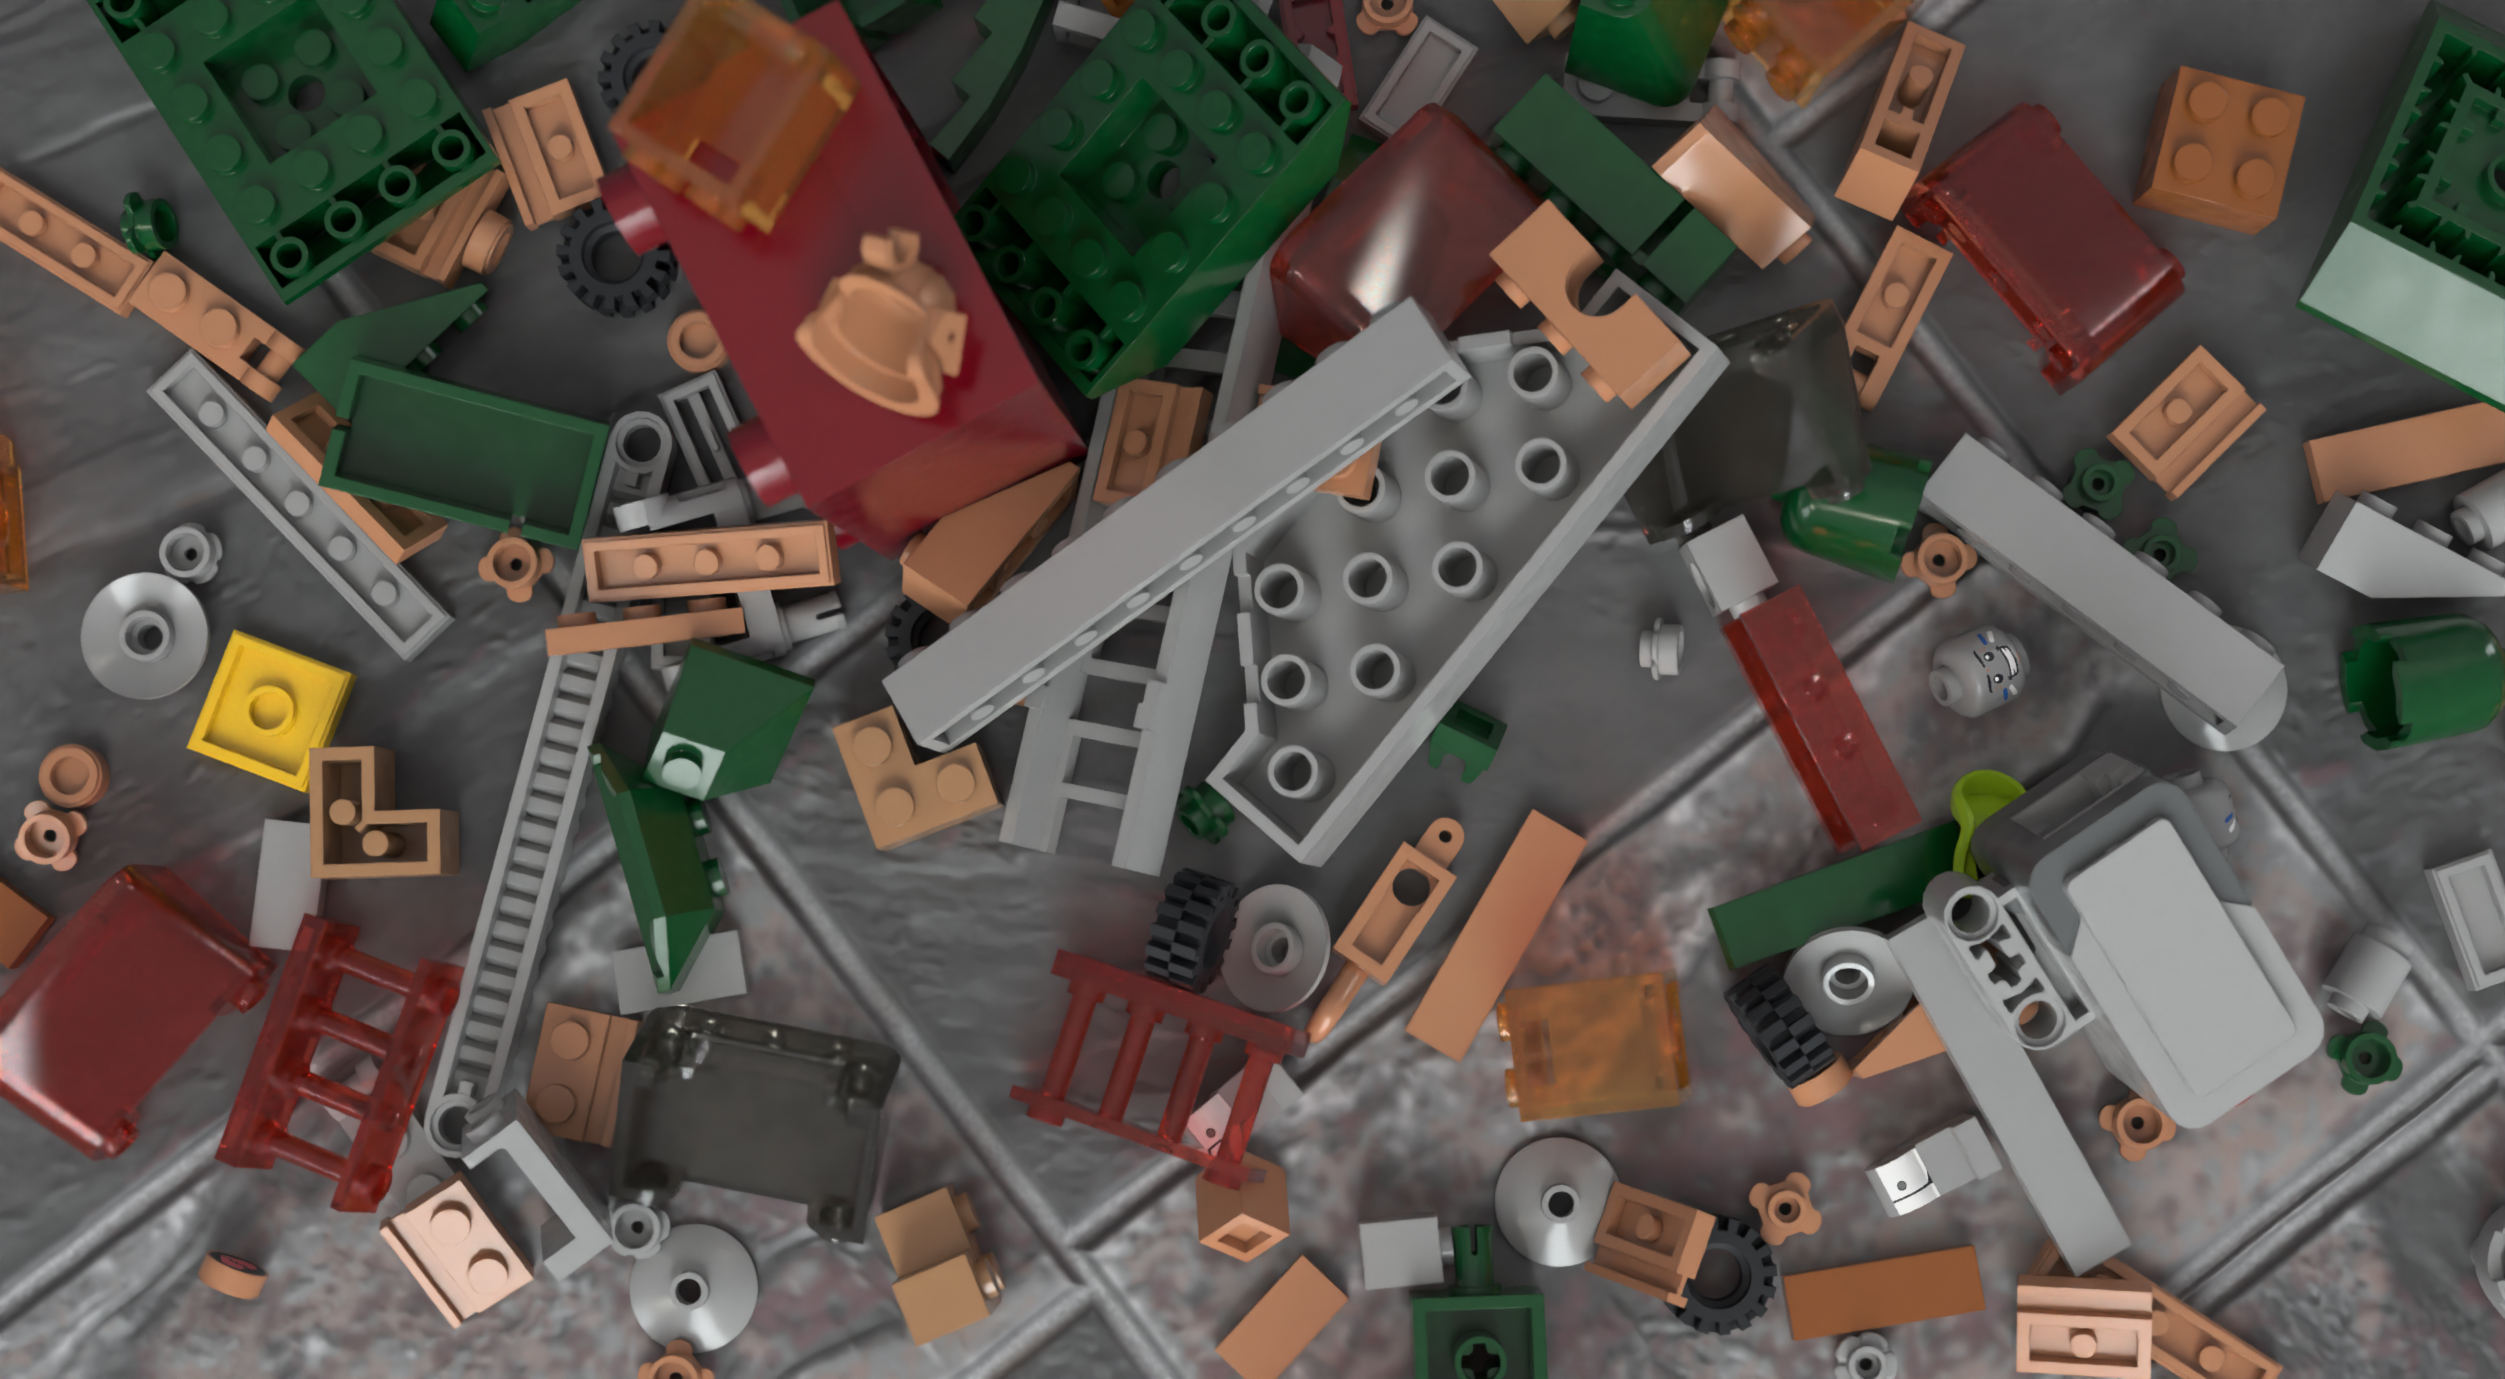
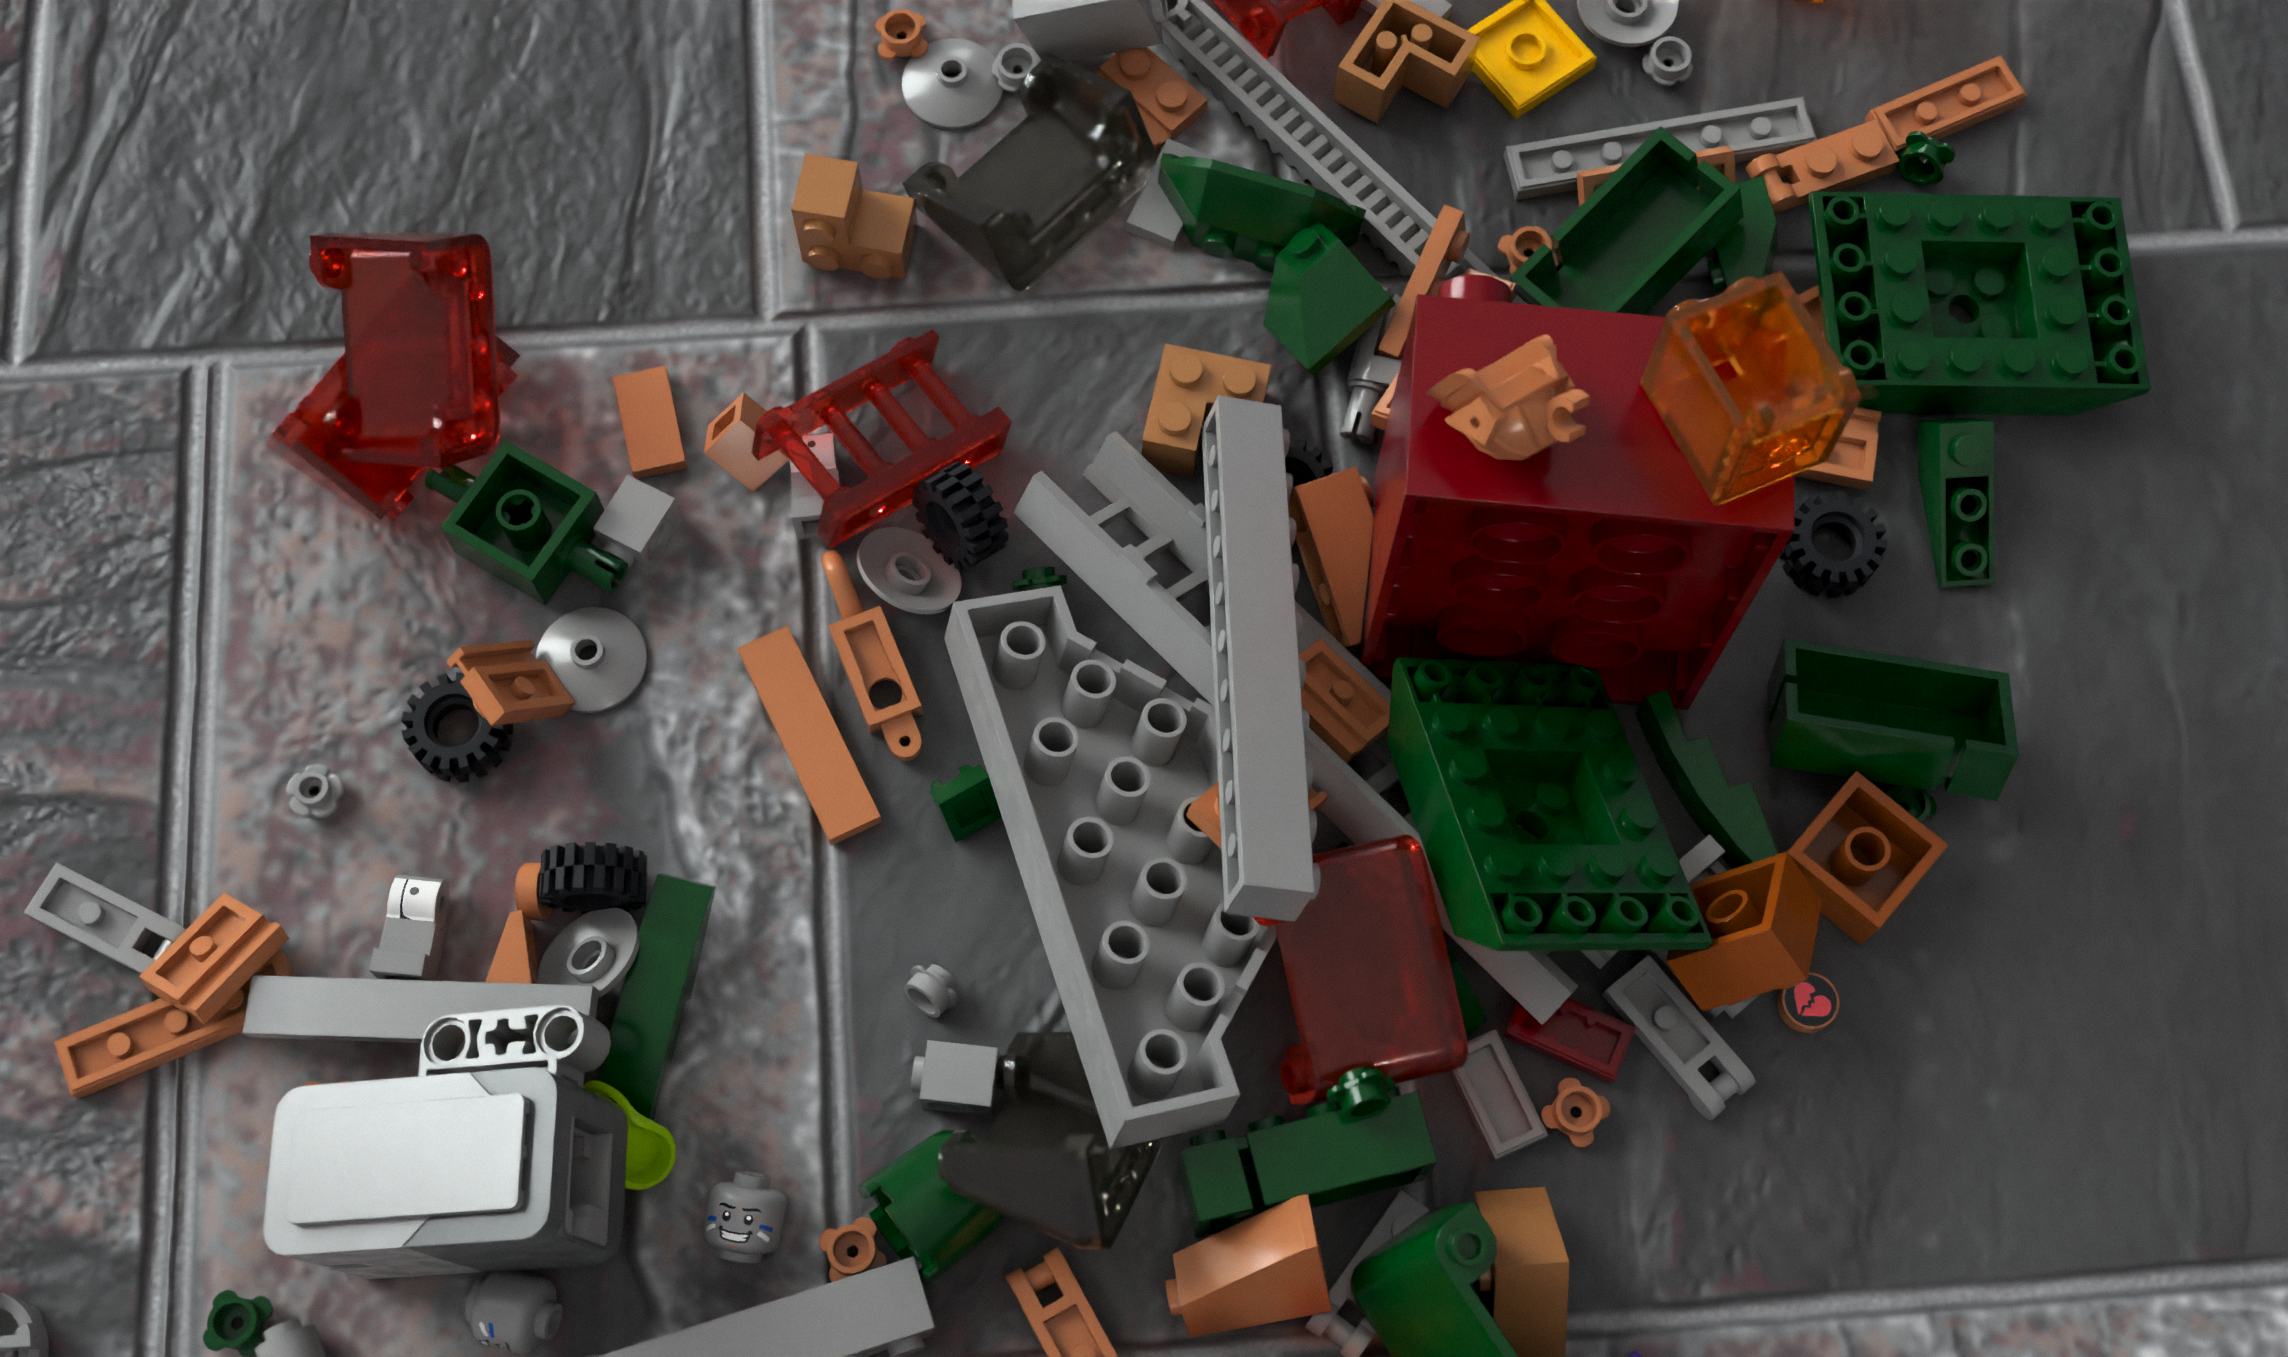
camera: 115 degrees right, 15 degrees down
(1534, 169) = (1362, 1093): none -> dark green plate
(1611, 1045) = (674, 734): clear orange container -> none
(1625, 349) = (1271, 1032): nougat arch -> none
(1769, 1198) = (469, 823): nougat plate -> none
(1820, 722) = (789, 1050): clear red fence -> none
(1882, 1292) = (353, 840): dark orange tile -> none

